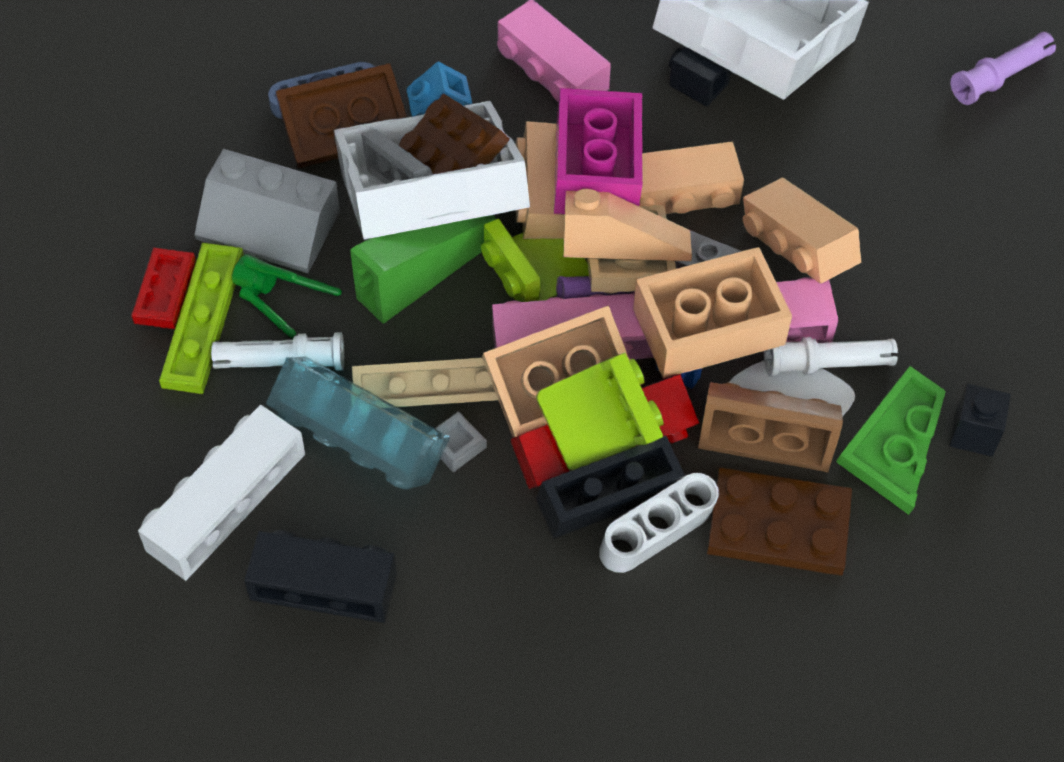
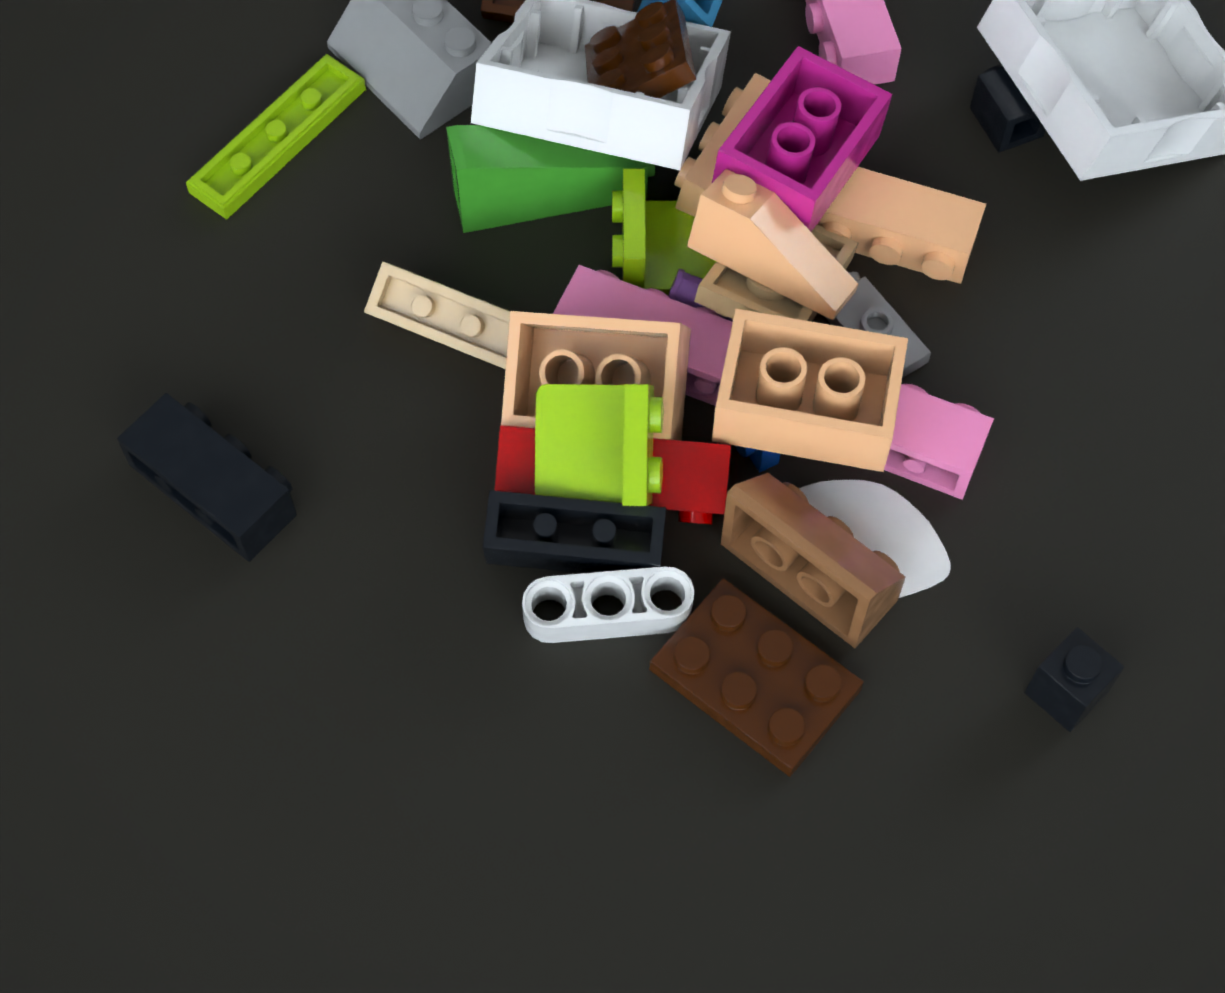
camera: 30 degrees right, 5 degrees up
(163, 288) = (254, 84): red plate -> none
(221, 491) = (167, 333): white brick -> none
(260, 277) = (360, 119): green plant -> none
(269, 353) = (346, 220): white pin -> none
(357, 422) = (351, 326): clear light blue brick -> none
(390, 161) = (569, 46): light grey plate -> none
(464, 441) = (452, 401): light grey tile -> none
(802, 230) = (998, 347): light nougat brick -> none
(809, 355) = (916, 501): white pin -> none
(895, 440) = (958, 650): bright green wing -> none

